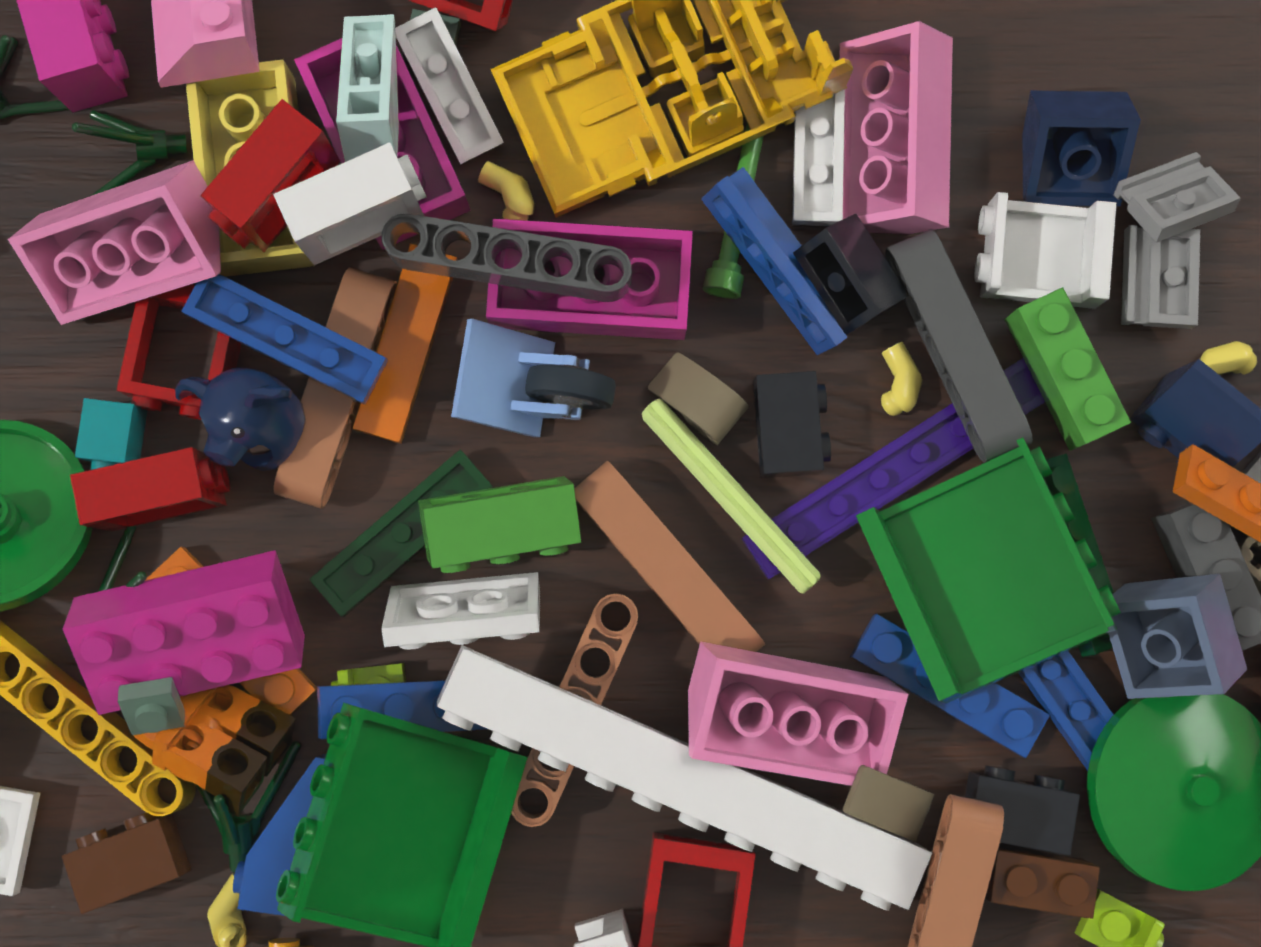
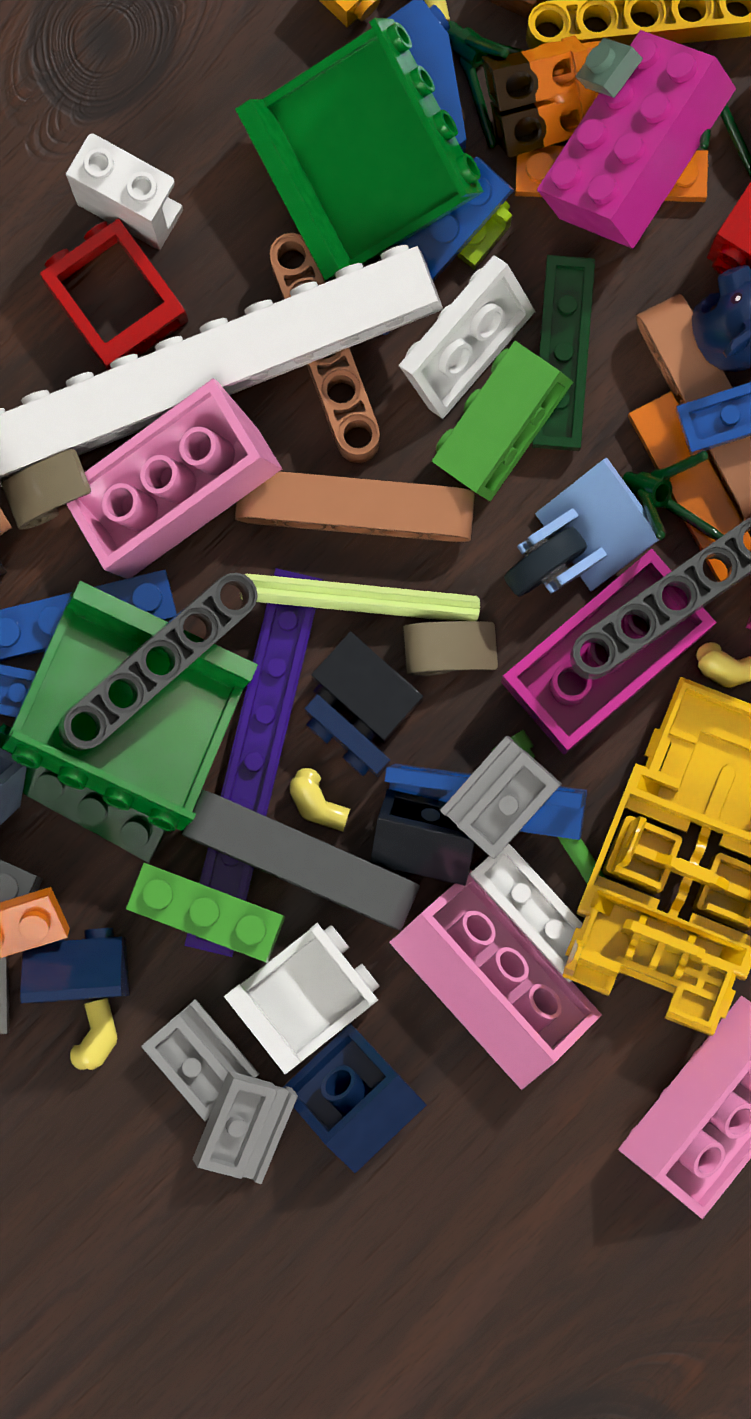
camera: 140 degrees right, 0 degrees up
(438, 364) = (656, 490): none -> dark green plant
(779, 235) = (500, 797): none -> light grey plate
(838, 421) = (329, 724): none -> dark blue plate
(963, 568) = (179, 650): none -> dark grey beam

